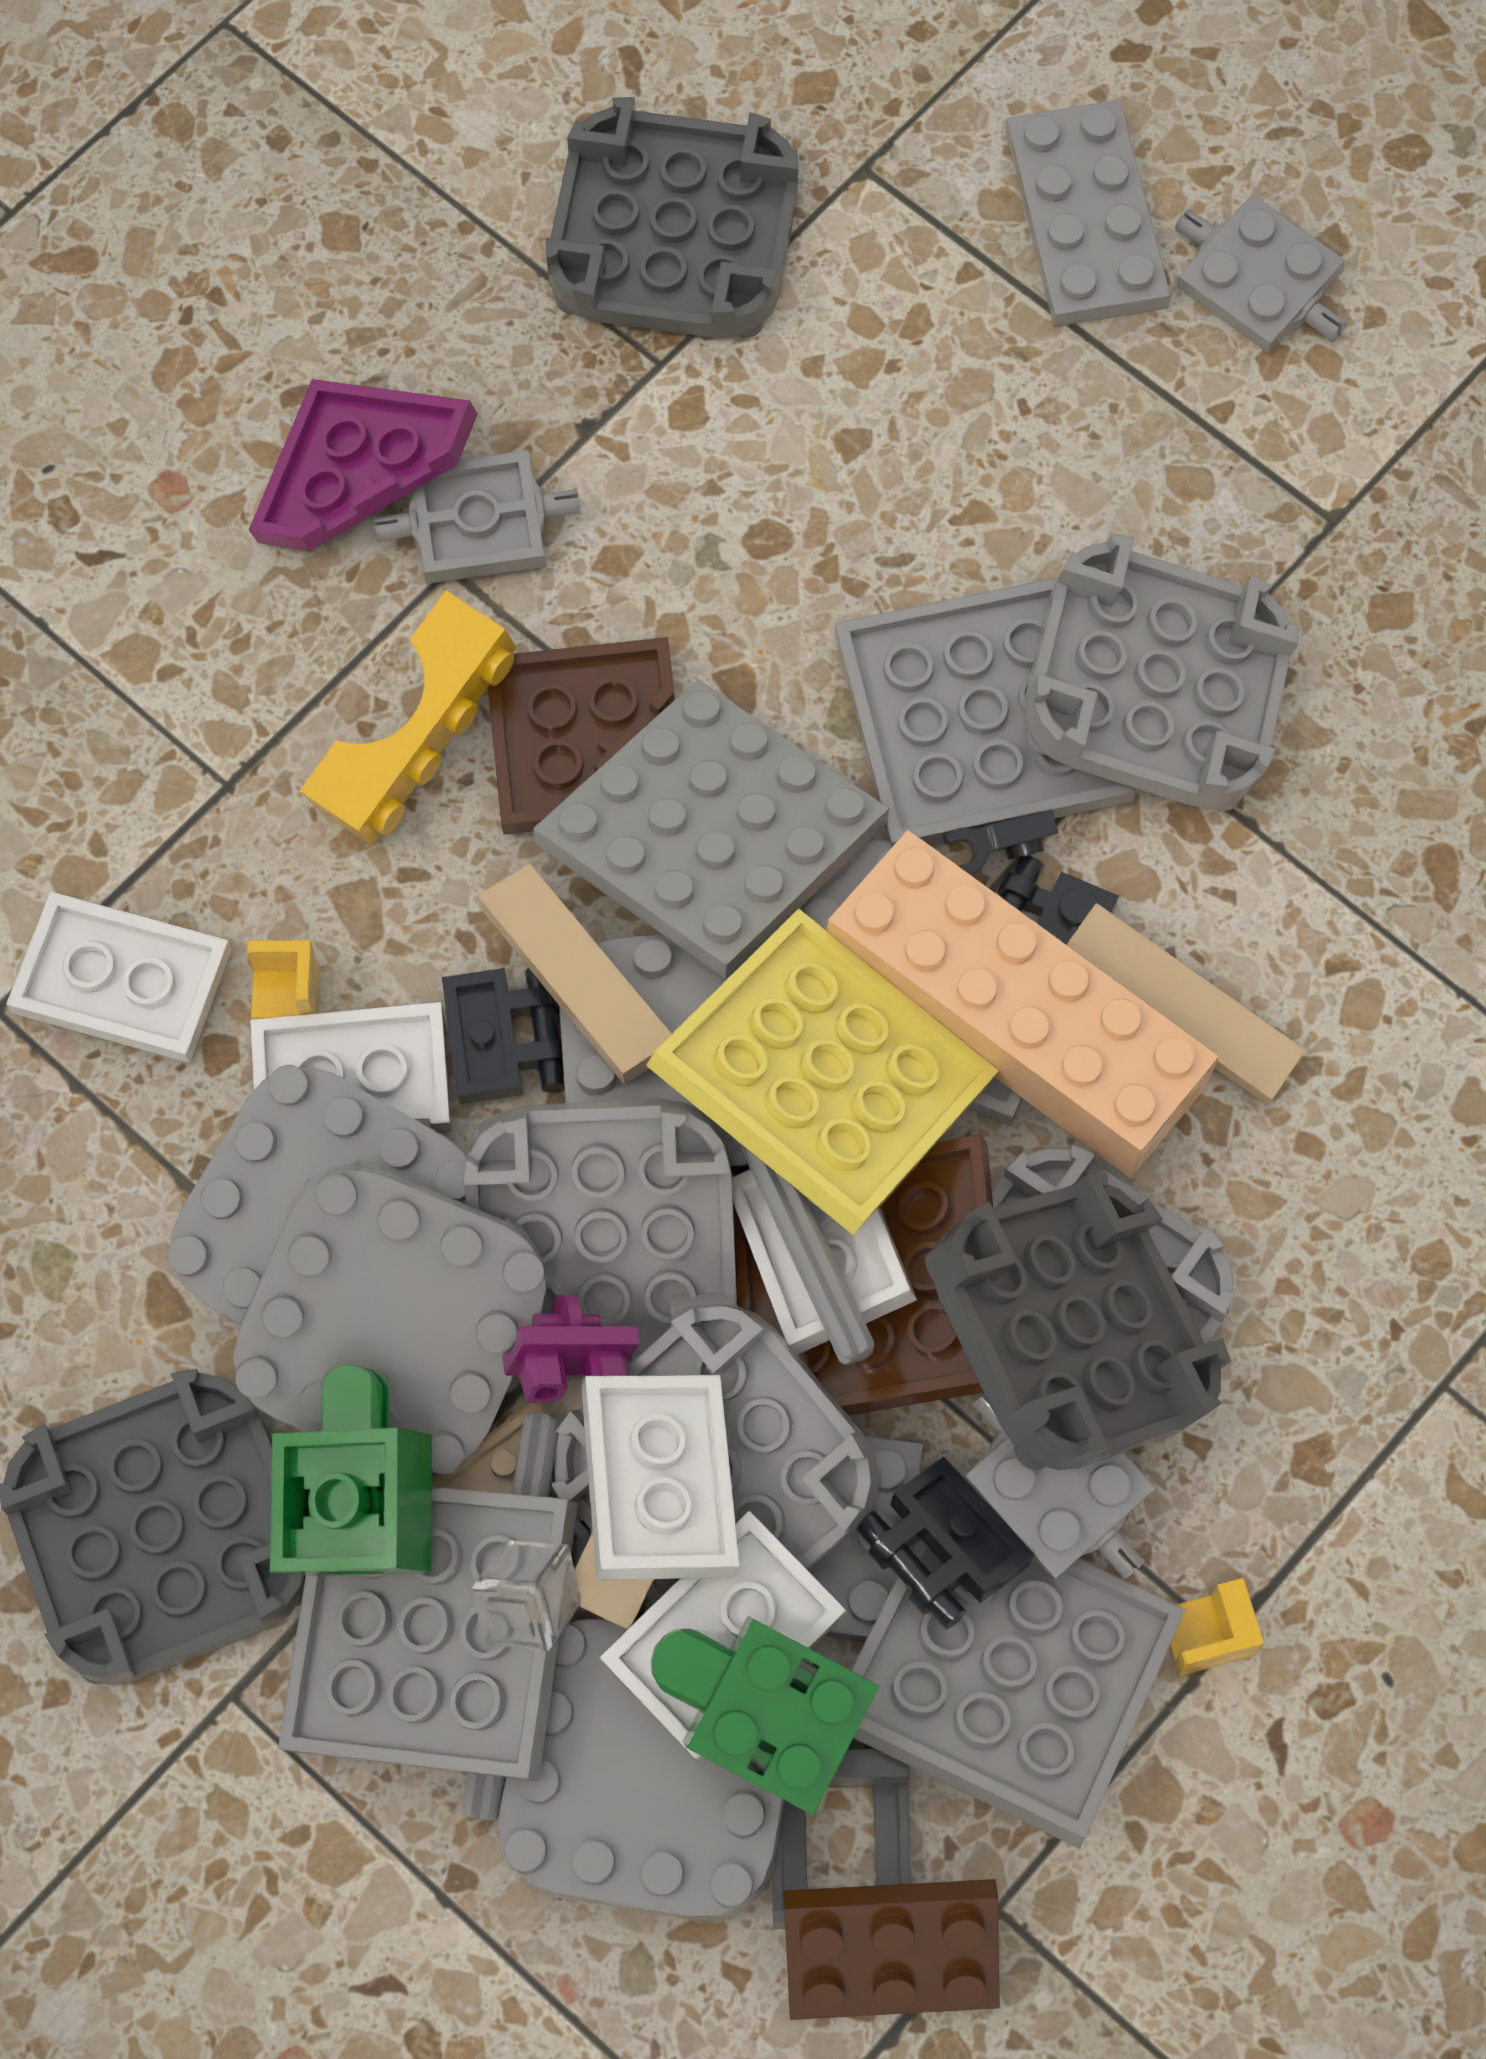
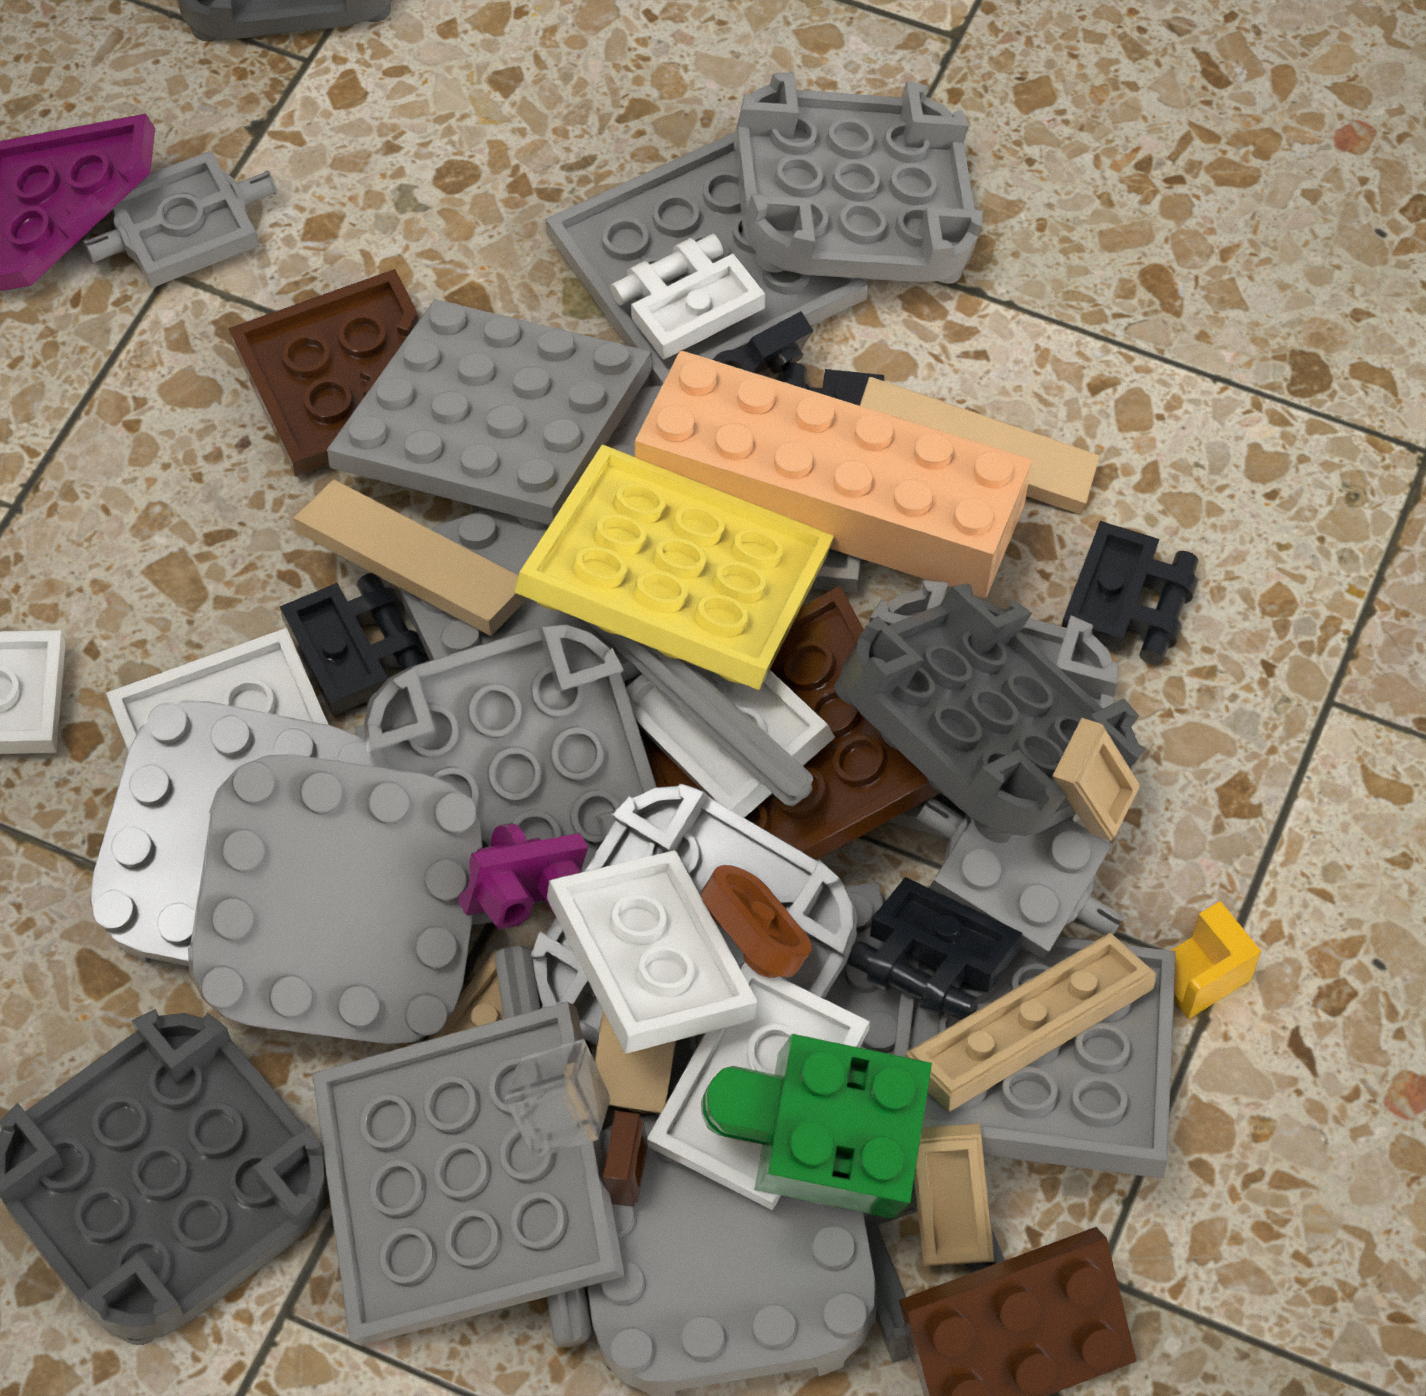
camera: 20 degrees left, 10 degrees down
(283, 978) = (123, 645): yellow panel -> none
(353, 1491) = (352, 1057): green brick -> none
(369, 782) = (152, 460): yellow arch -> none
(575, 1668) = (625, 1158): none -> reddish brown tile
(770, 1476) = (756, 922): none -> dark orange plate
(874, 1798) = (953, 1196): none -> tan tile
(946, 771) = (695, 306): none -> white plate
(1009, 1647) = (1032, 1020): none -> tan tile
(1149, 1434) = (1096, 779): none -> tan tile
(1266, 1197) = (1113, 581): none -> black plate

